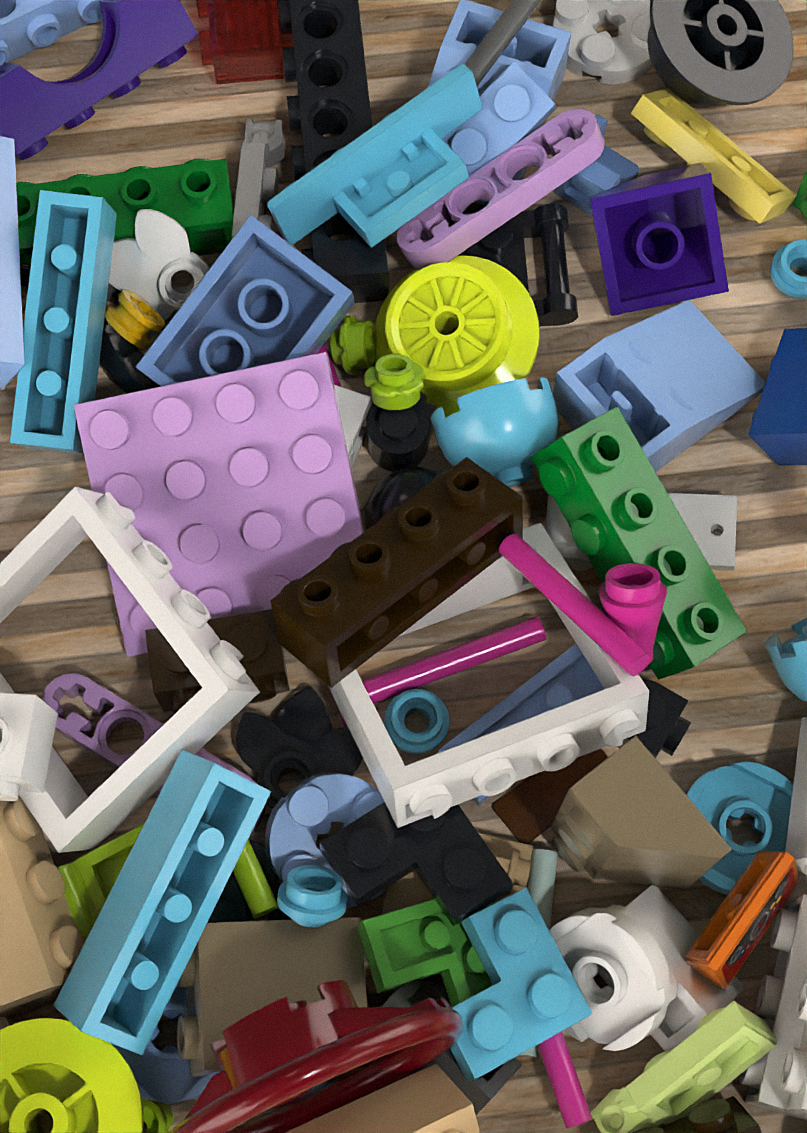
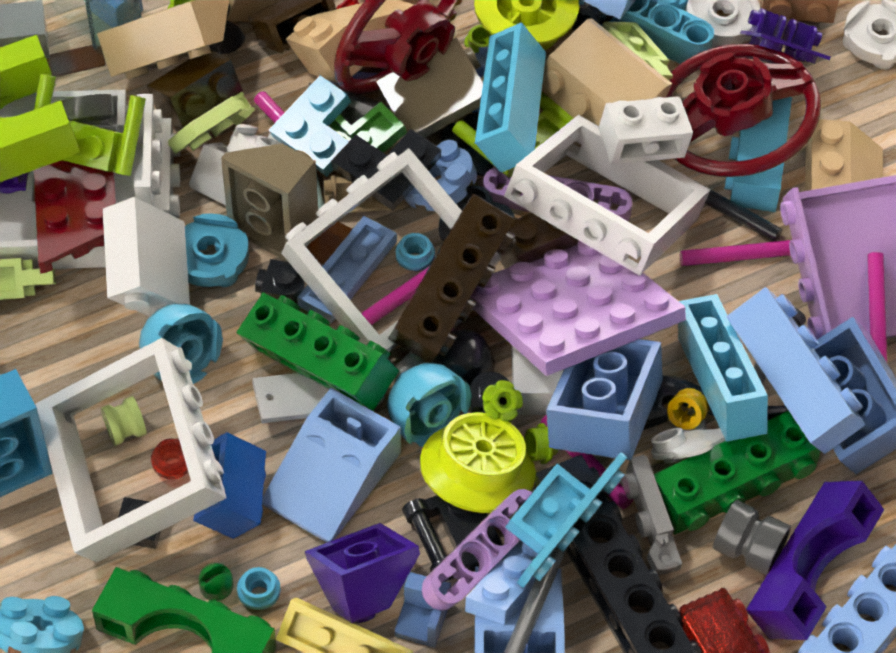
camera: 160 degrees right, 15 degrees down
(141, 119) = (749, 536): none -> dark grey wheel
(312, 896) = (447, 127): medium azure plate -> none
(575, 605) = (344, 287): dark pink bar -> none
(634, 601) = (318, 292): dark pink cone -> none
(743, 917) = (202, 191): orange slope -> none

